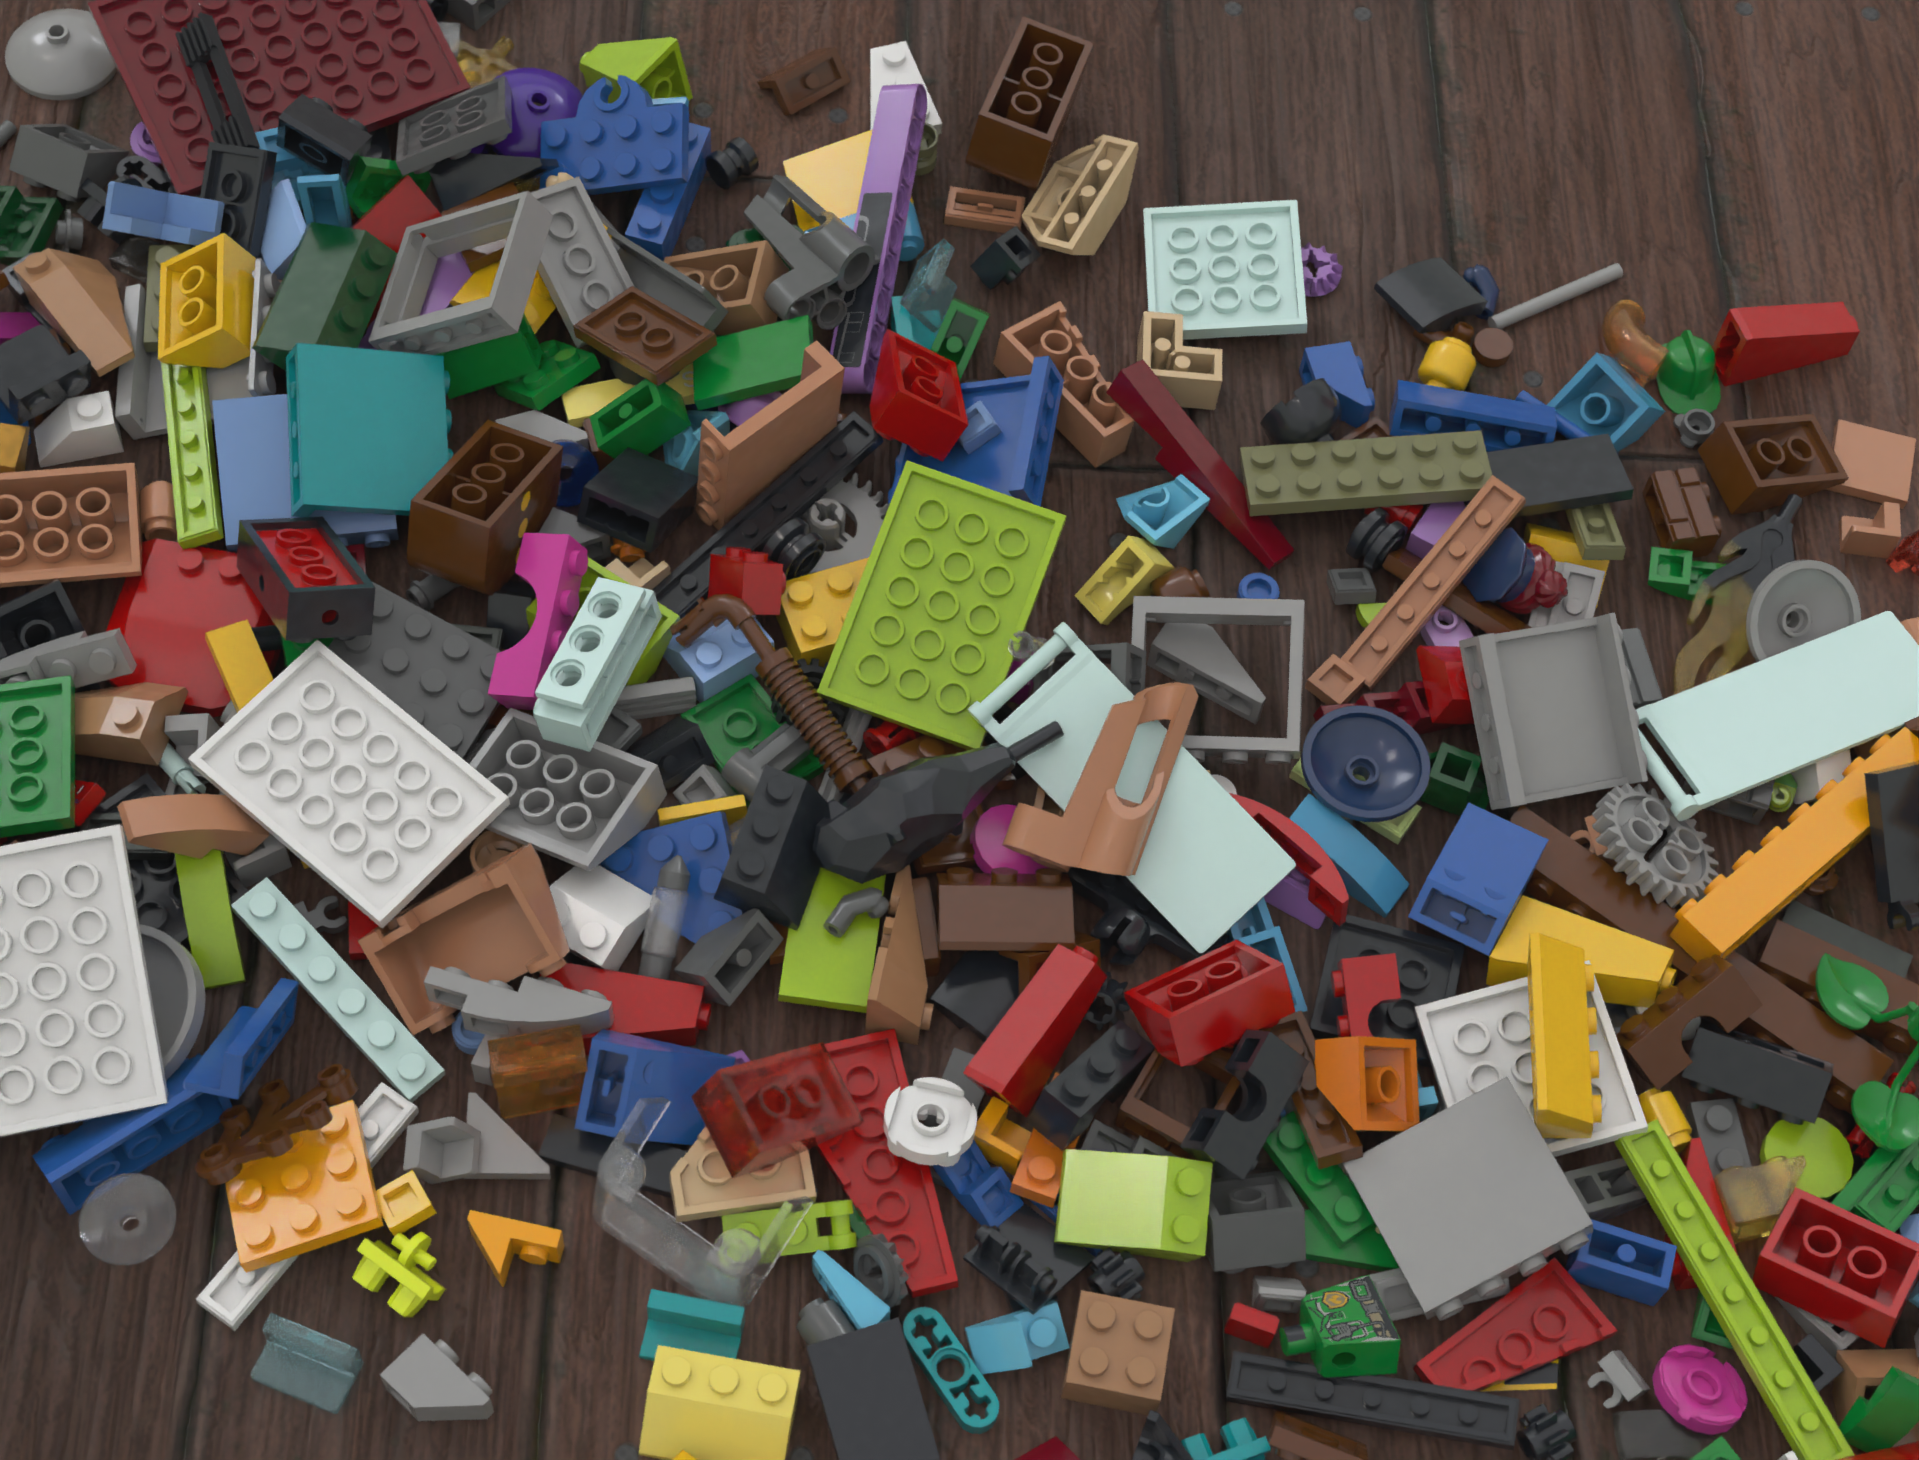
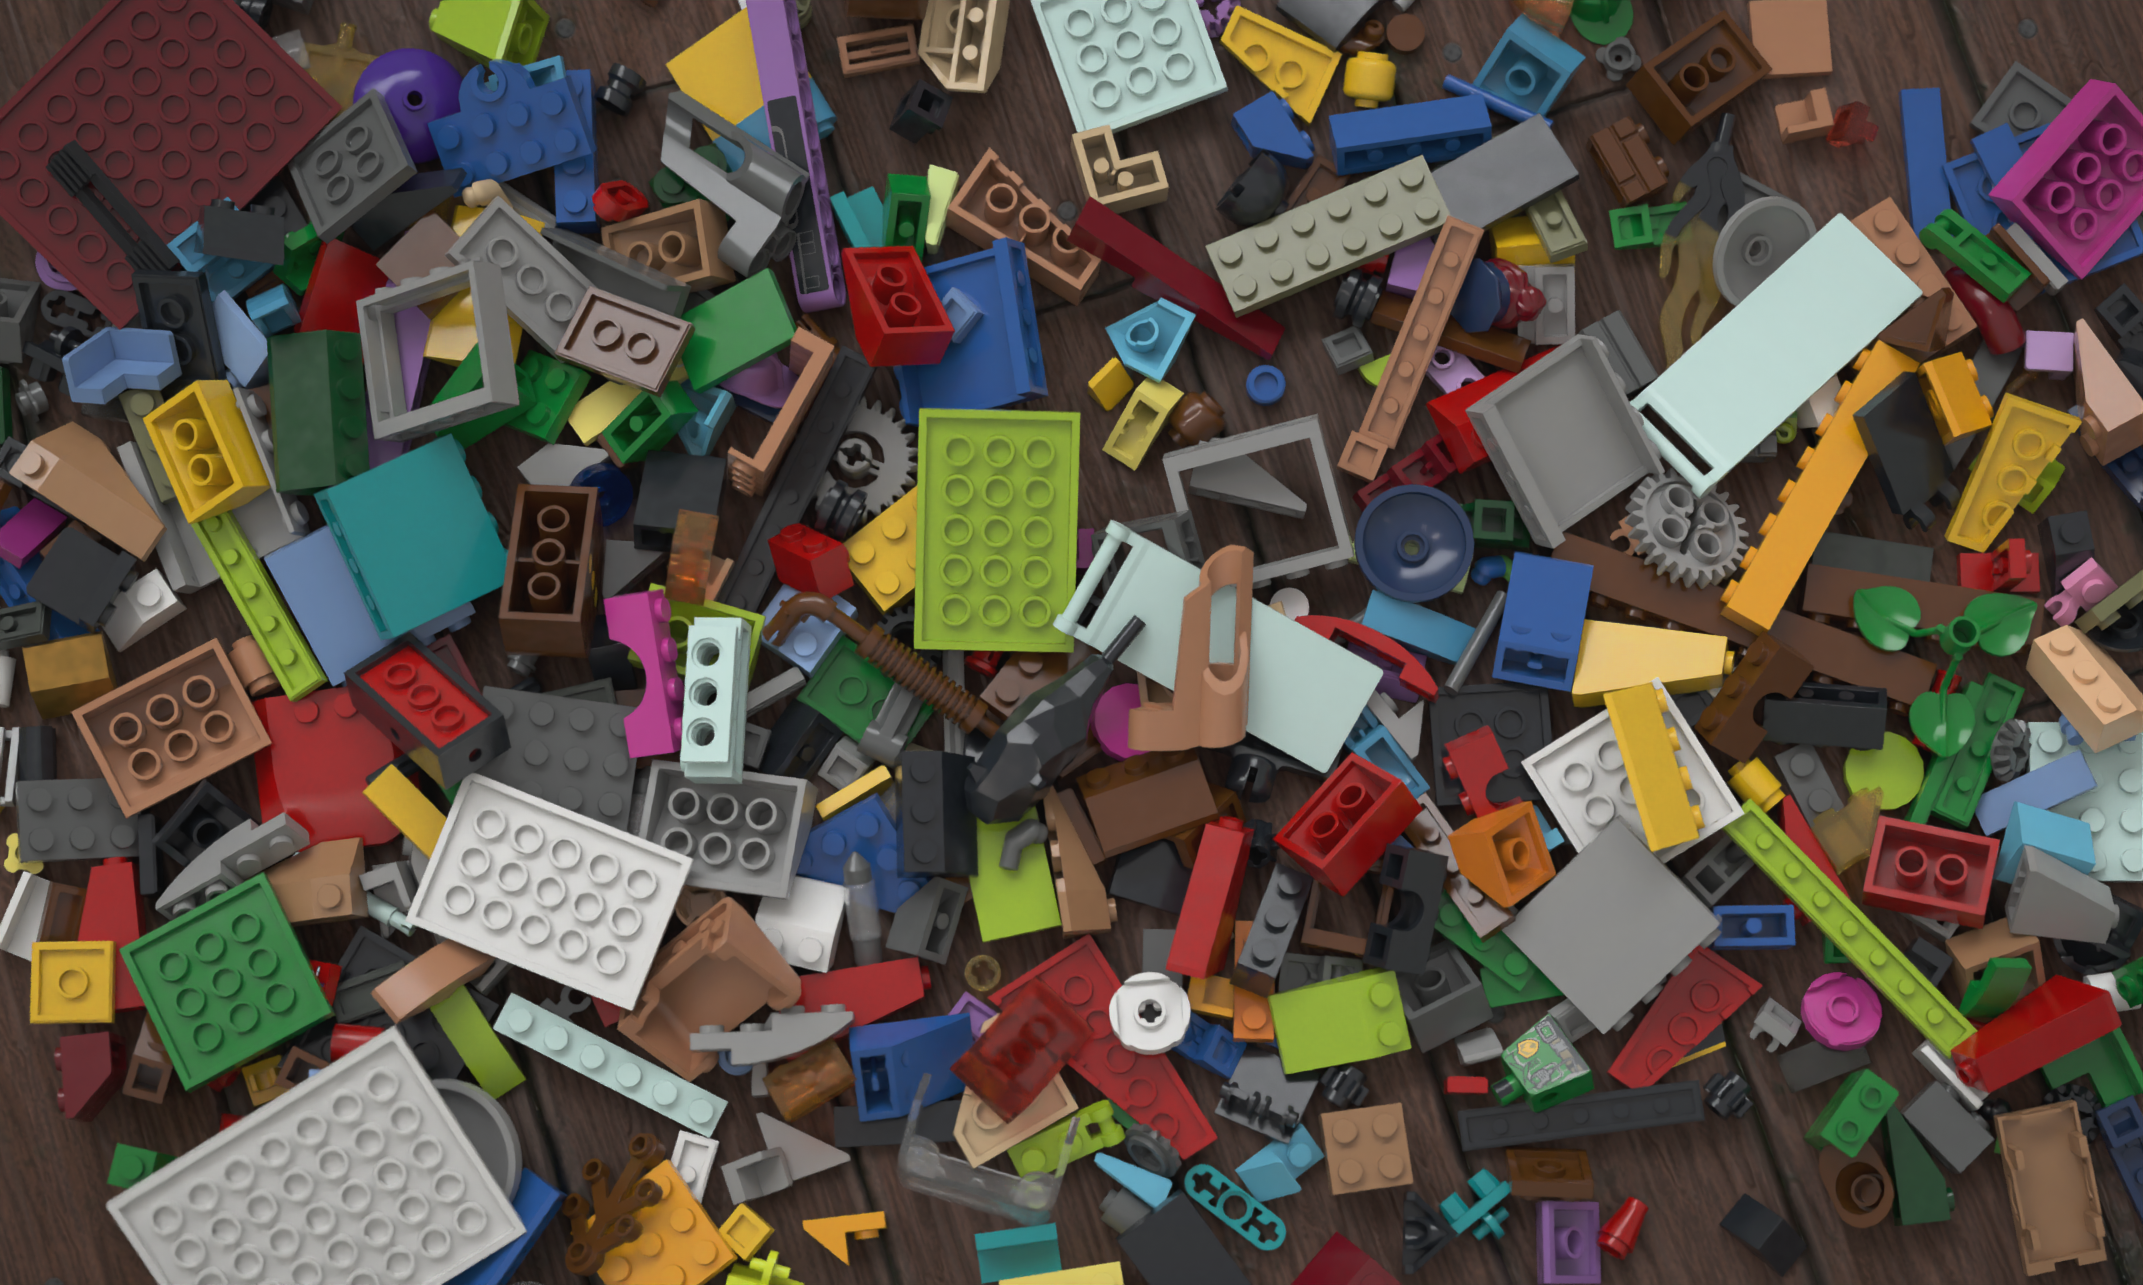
camera: 15 degrees left, 20 degrees up
(245, 1044) = (561, 1153): blue panel -> none
(627, 531) = (691, 557): none -> clear orange brick
(685, 234) = (618, 201): none -> red plate
(763, 1022) = (992, 965): none -> clear yellow bush
(929, 288) = (861, 170): clear light blue panel -> none
(983, 356) = (943, 189): none -> yellowish green slope
(1027, 646) = (1087, 547): clear pin -> none
(1100, 538) = (1110, 384): none -> yellow slope
(1299, 939) = (1405, 729): none -> light grey slope
(1373, 328) = (1281, 60): none -> yellow wing
(1395, 891) = (1476, 644): none -> dark grey bar
(1432, 824) = (1491, 567): none -> blue arm

